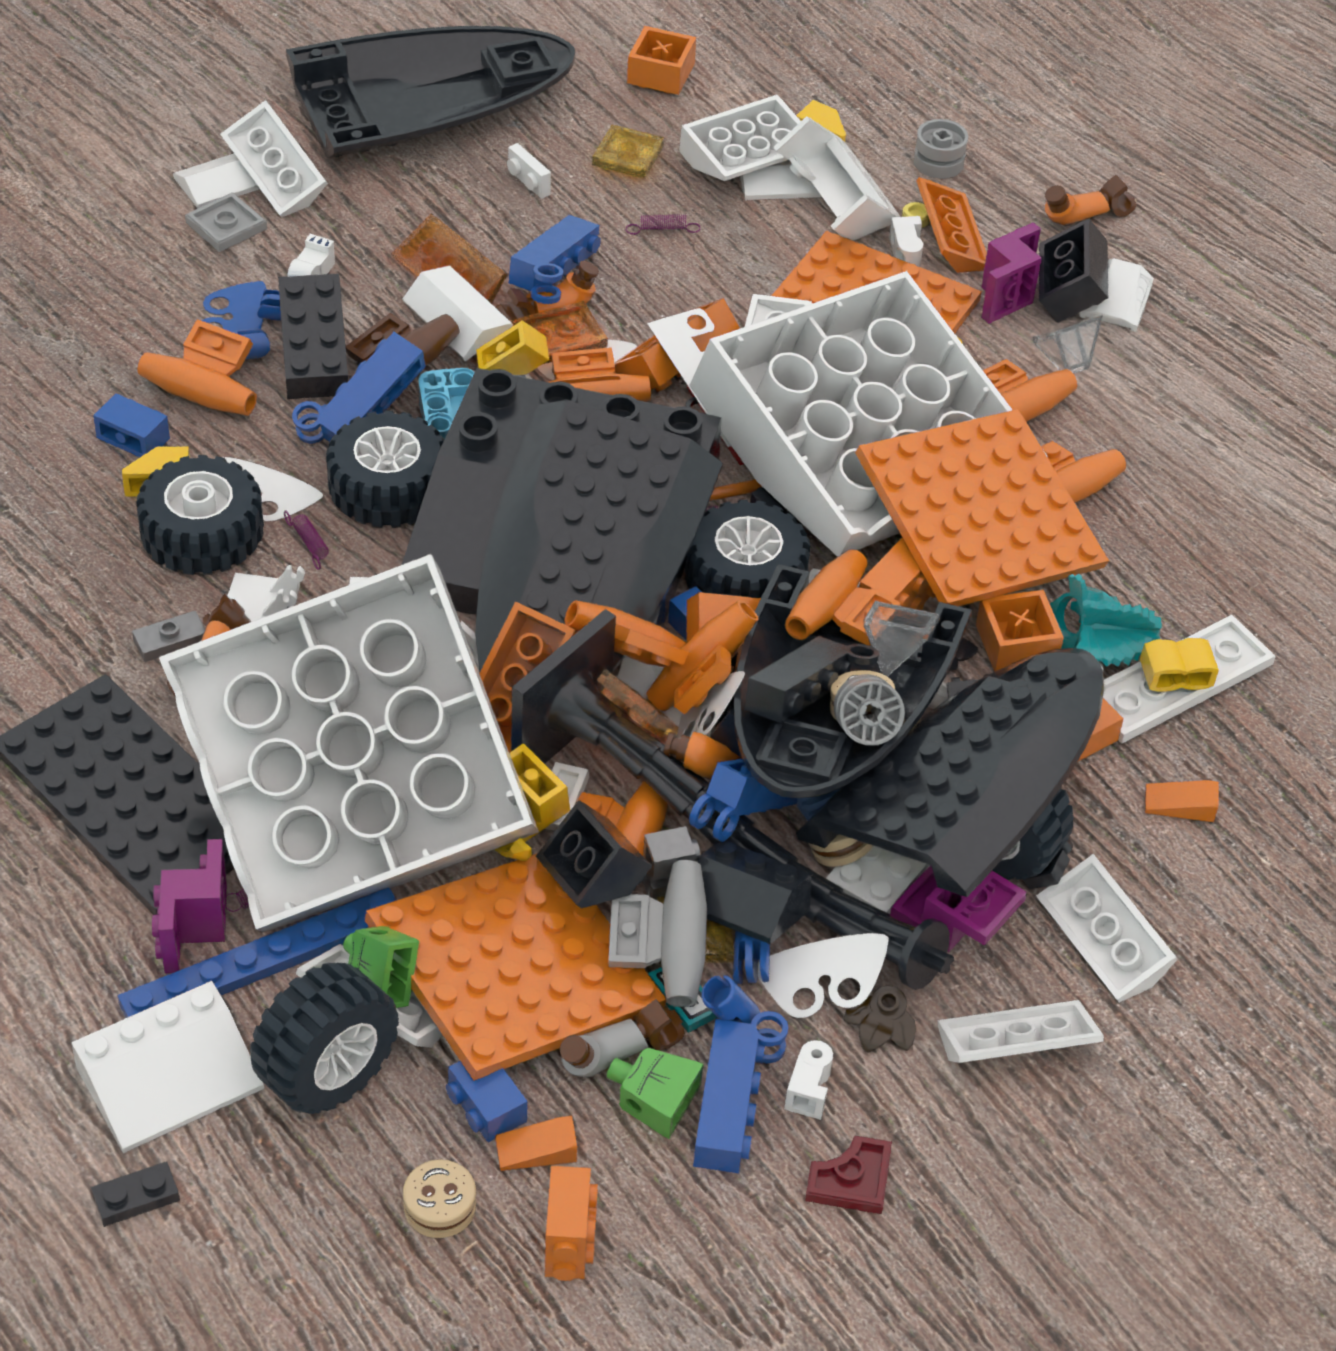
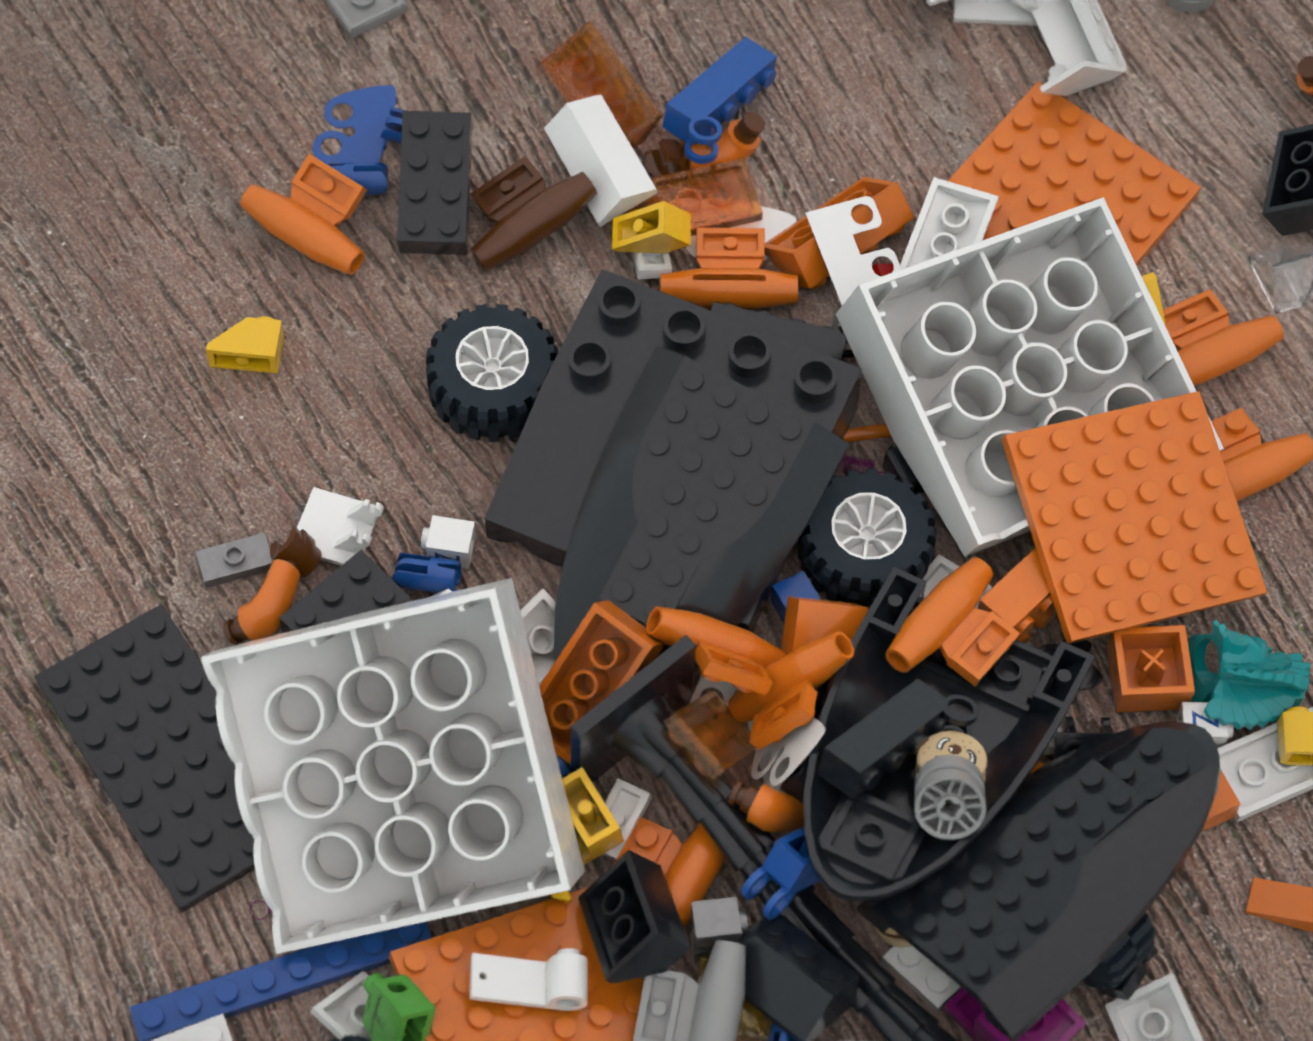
camera: 10 degrees right, 15 degrees up
(131, 425) = (226, 279): blue brick -> none
(190, 906) = (213, 916): magenta bracket -> none
(200, 514) = (283, 412): black wheel -> none
(281, 489) = (375, 373): white piece -> none
(309, 527) = (397, 459): magenta piece -> none
(315, 259) = (449, 71): white leg -> none
(371, 389) = (483, 270): blue hinge -> none
(441, 395) = (568, 274): medium azure beam -> none
(528, 922) = (551, 984): none -> white door
(673, 218) = (849, 53): magenta piece -> none
(897, 632) = (1005, 681): clear slope -> none
(906, 239) = (1125, 99): white leg -> none
(916, 209) = (1147, 66): light yellow tile -> none
(953, 226) = (1186, 89): orange slope -> none
(1011, 272) = (1237, 171): magenta bracket -> none

